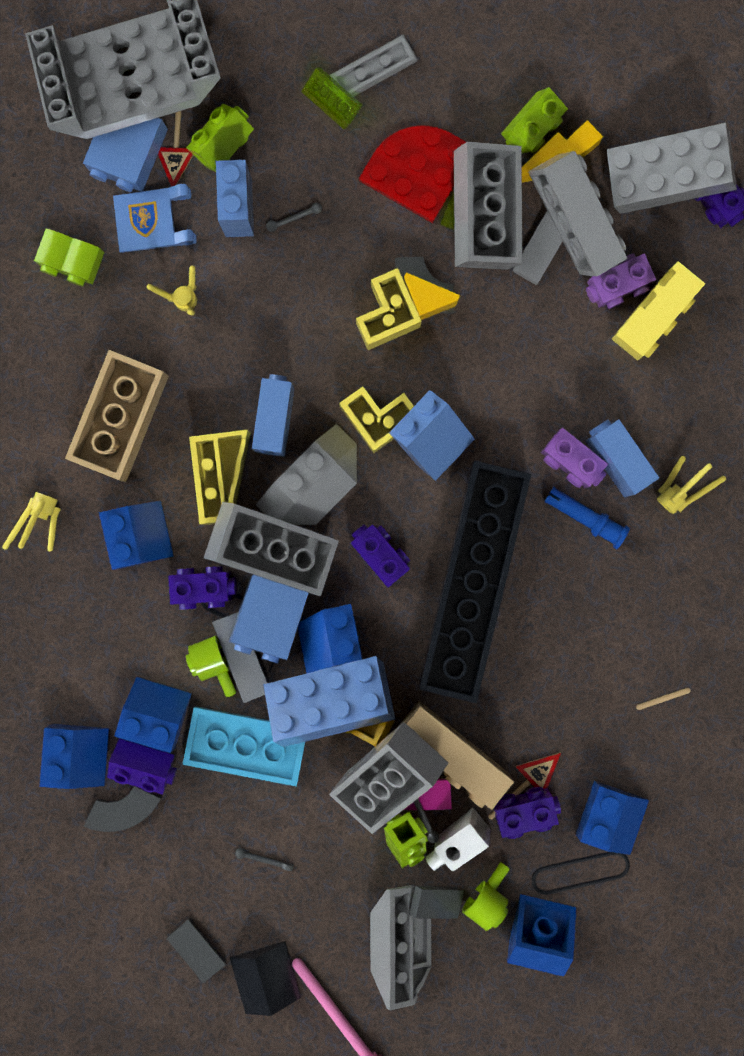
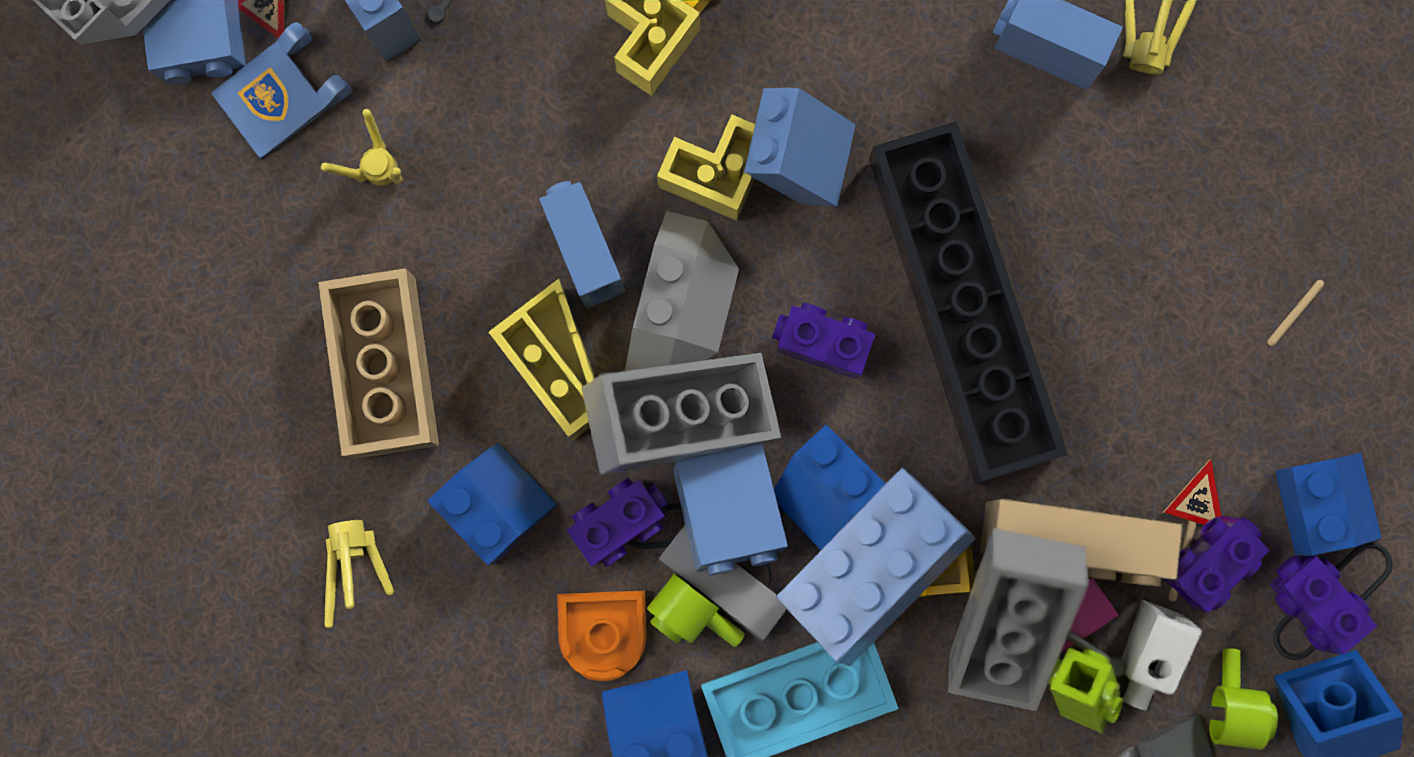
camera: 25 degrees left, 5 degrees down
(69, 257) = (198, 200): lime brick -> none
(156, 643) = (602, 632): none -> orange tile
(569, 862) = (1313, 594): none -> dark purple brick
(574, 459) = (997, 75): medium lavender brick -> none
(599, 524) = (1077, 139): blue pin -> none

